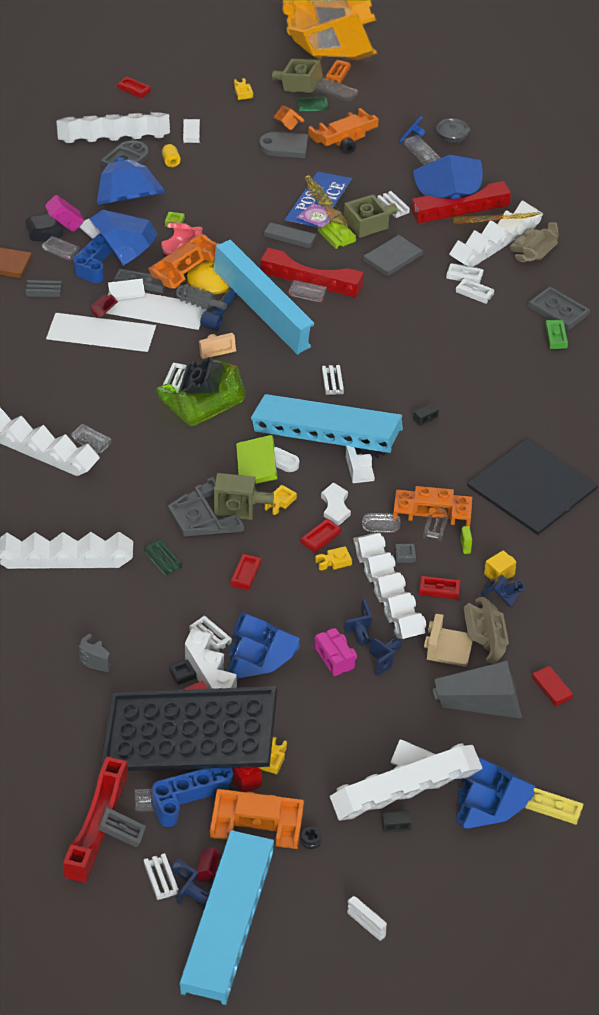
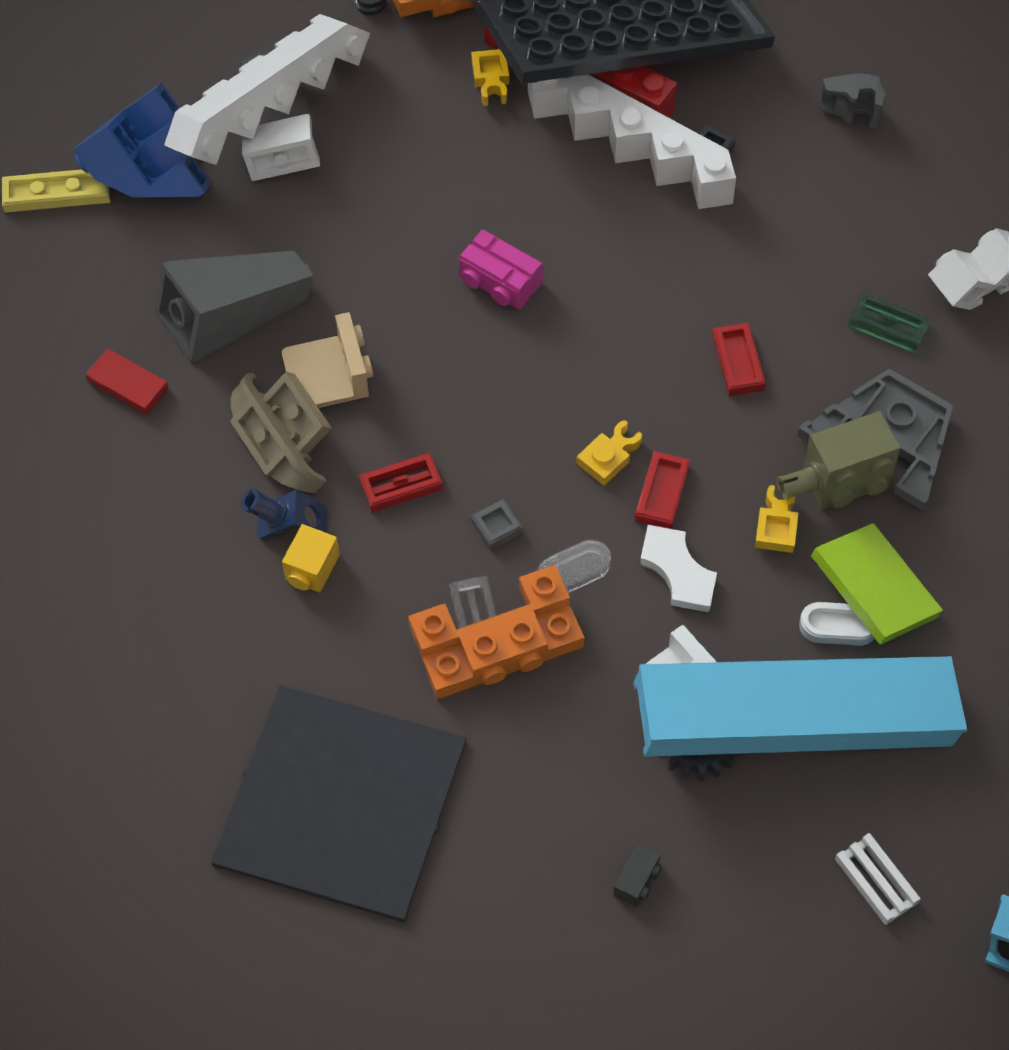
camera: 155 degrees right, 15 degrees up
(216, 643) = (713, 229): white tile -> none
(259, 647) = (618, 221): blue brick -> none
(360, 624) = (489, 337): dark blue bracket -> none
(384, 653) = (422, 306): dark blue bracket -> none
(389, 586) = (484, 426): white brick -> none
(466, 540) = (399, 589): lime tile -> none

